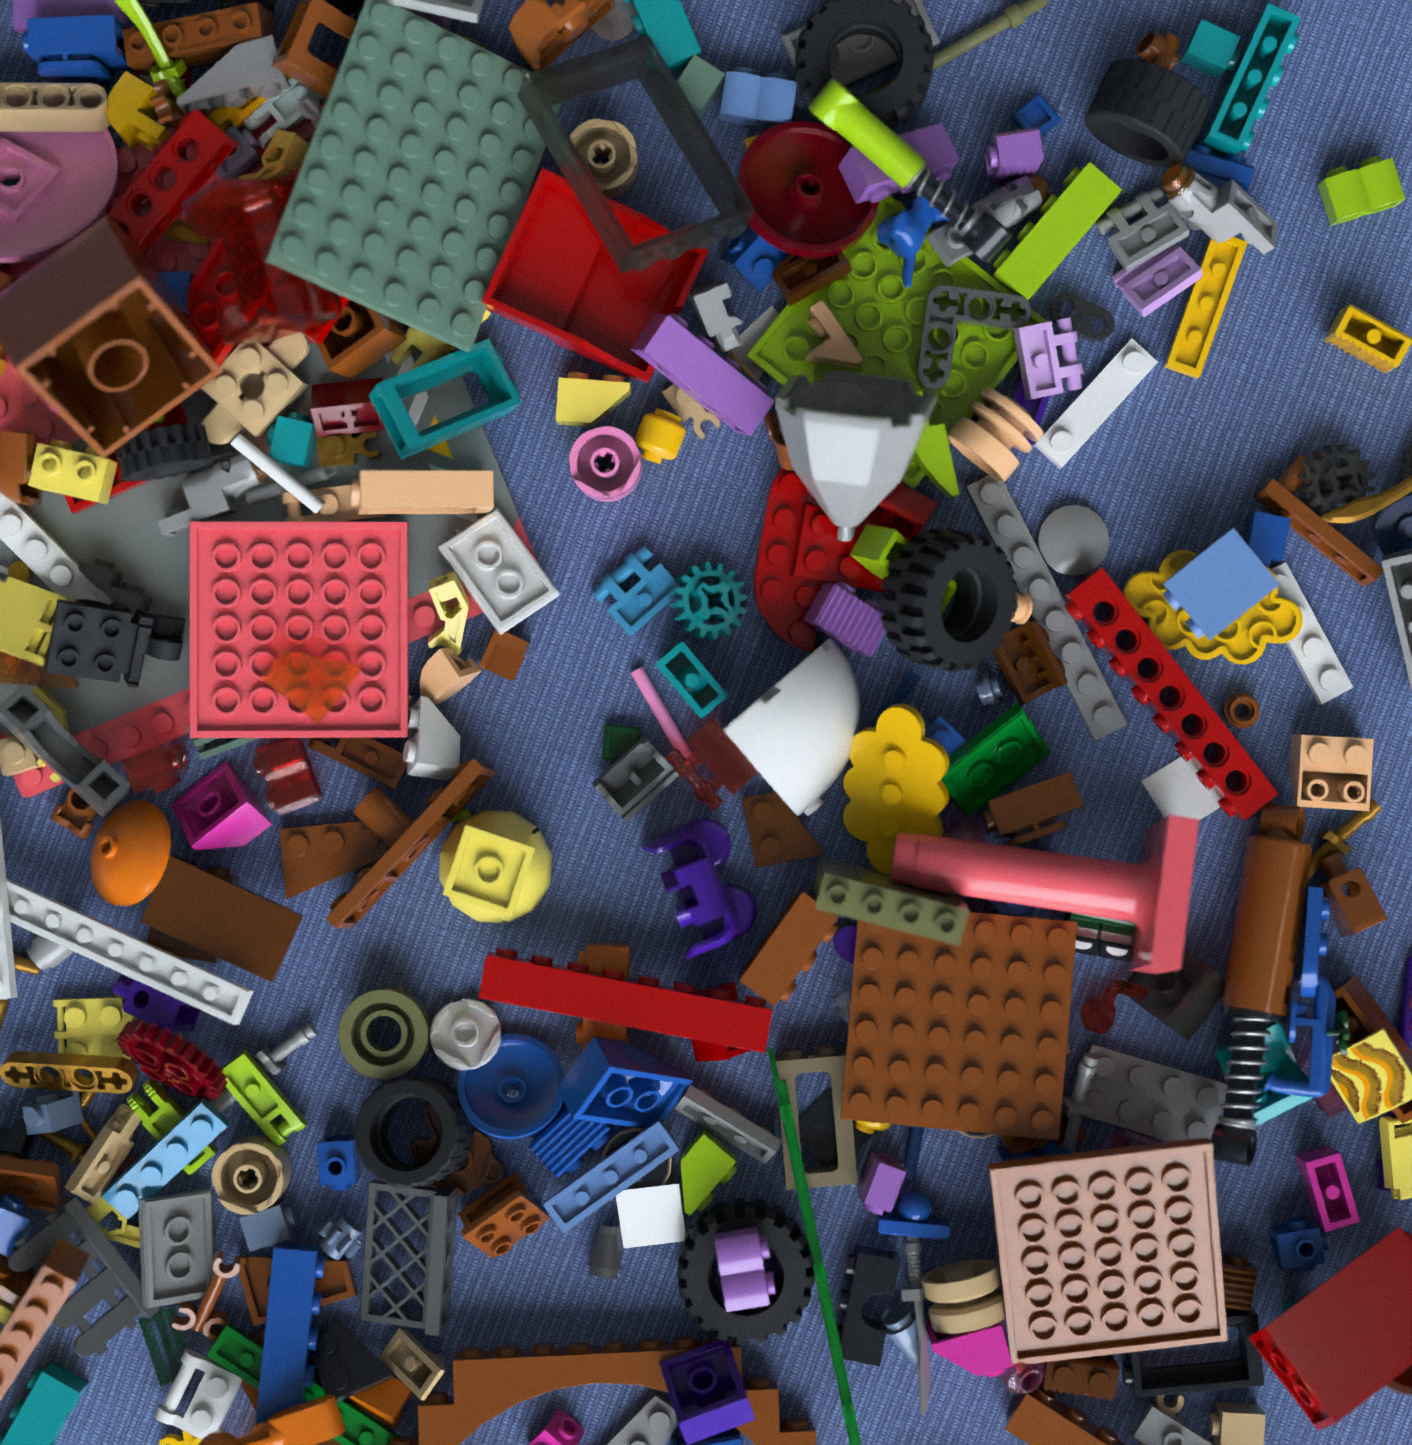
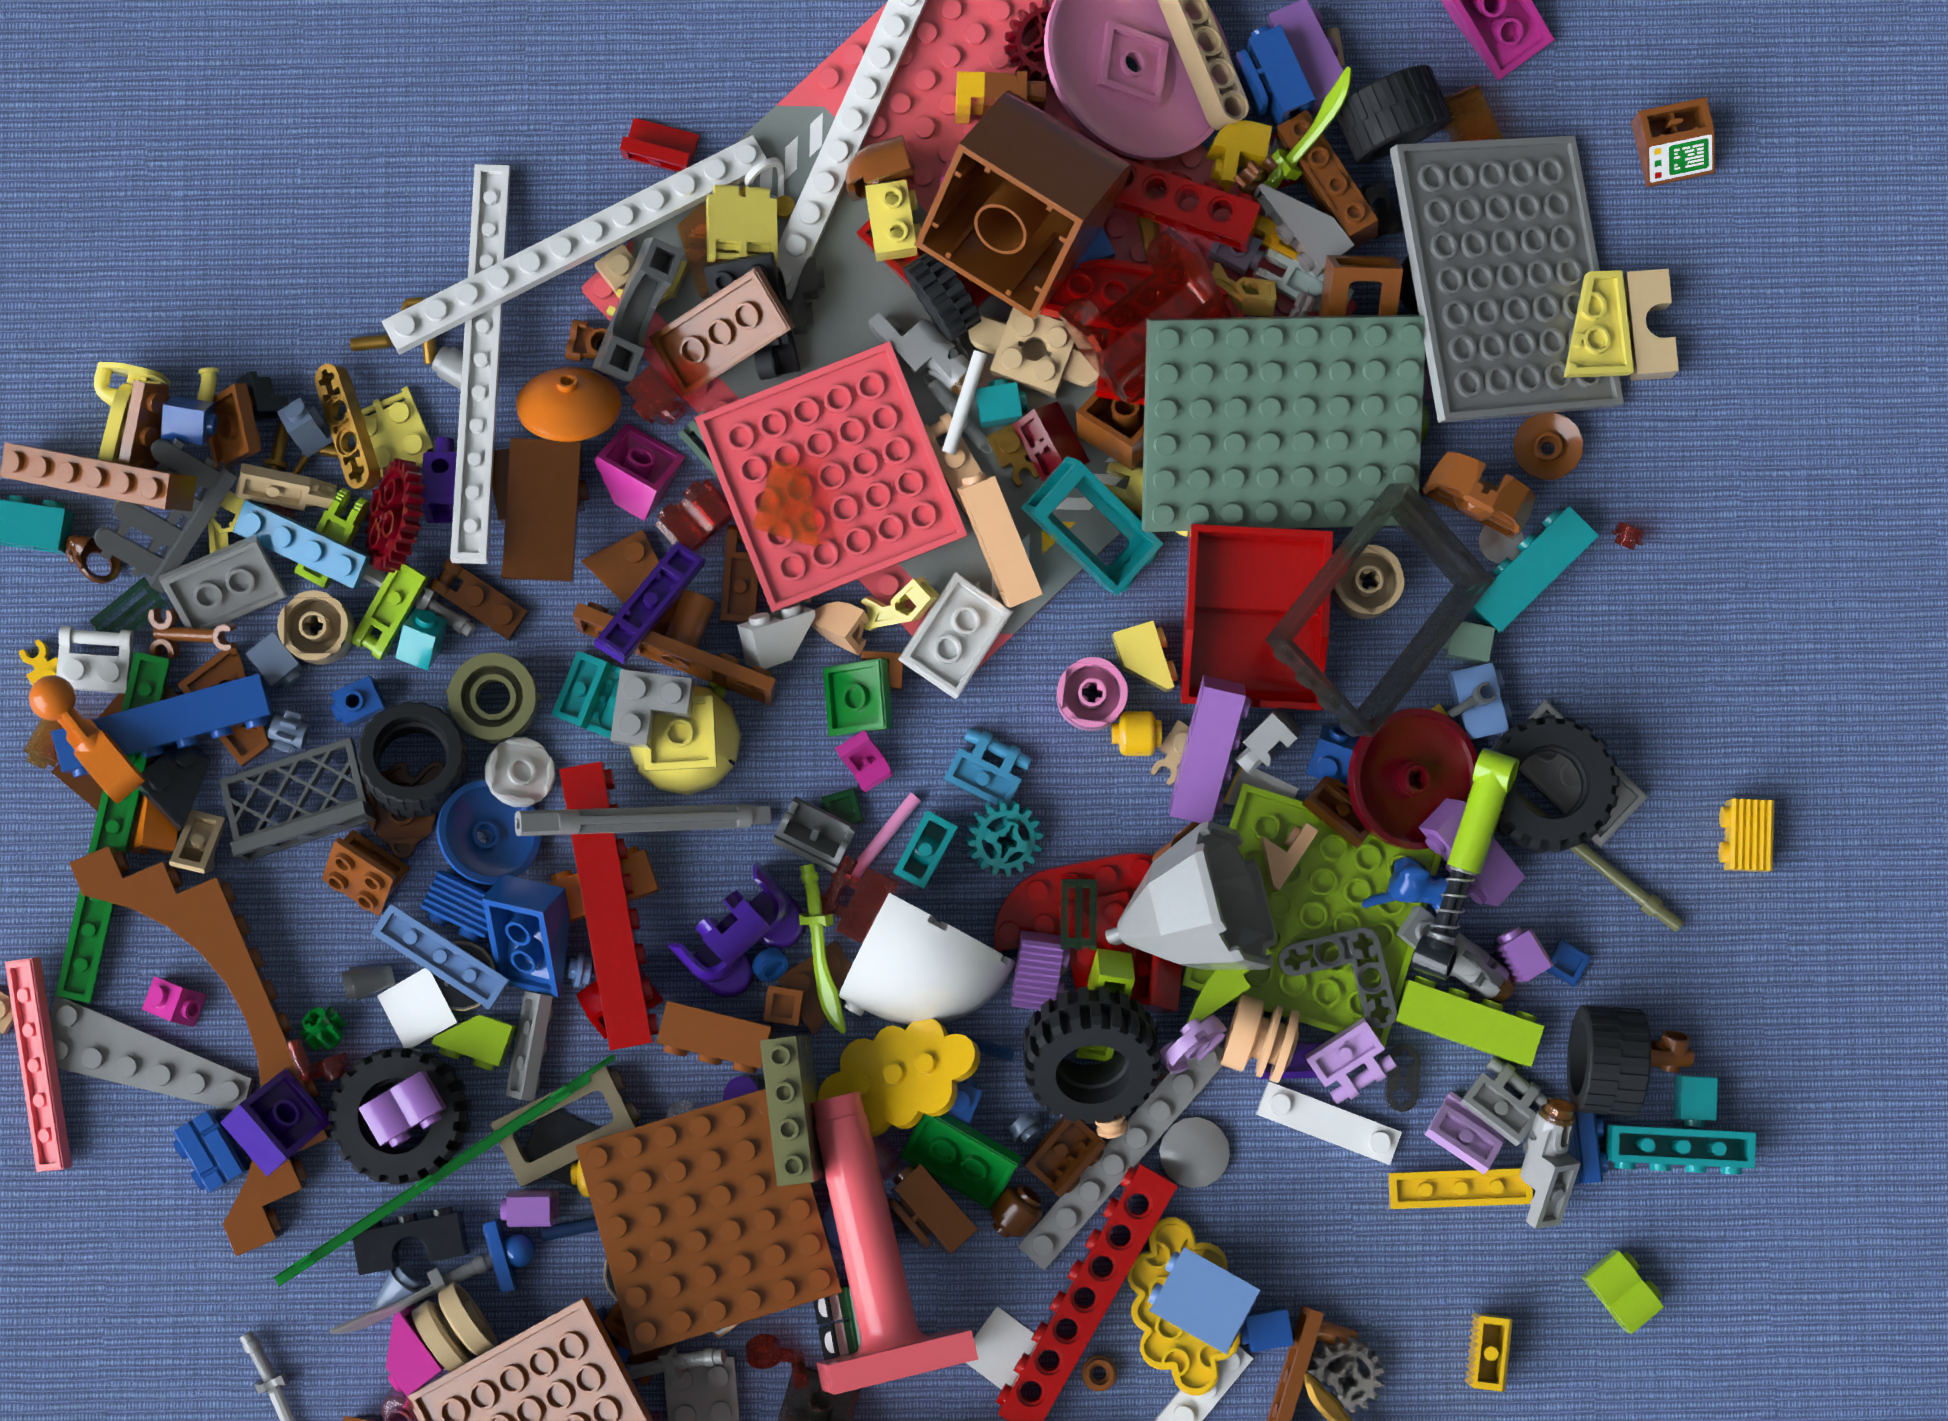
camera: 65 degrees right, 5 degrees down
(86, 1368) = (79, 548): none -> reddish brown piece
(116, 678) = (721, 331): none -> tile
(287, 1008) = (480, 600): none -> reddish brown plate
(301, 1079) = (421, 638): none -> teal brick
(352, 850) = (650, 602): none -> dark purple plate
(423, 931) = (589, 694): none -> teal slope
(441, 892) = (641, 697): none -> light grey brick
(521, 687) = (858, 697): none -> green plate
(556, 941) = (639, 819): none -> light grey piece
(584, 704) = (864, 760): none -> dark pink bracket
(634, 1311) = (323, 1028): none -> green gear
(674, 1049) = (579, 969): none -> medium blue plate
(674, 1319) = (330, 1068): none -> clear red plate
(717, 809) = (816, 919): none -> lime sword
(741, 868) = (770, 964): none -> blue tile
(755, 100) = (1472, 701): none -> dark grey hand
(785, 871) = (783, 1006): none -> dark orange panel
(837, 570) = (1079, 942): none -> clear green tile
(975, 494) = (1197, 1042): none -> lavender plate
(1062, 728) = (1016, 1211): none -> reddish brown head

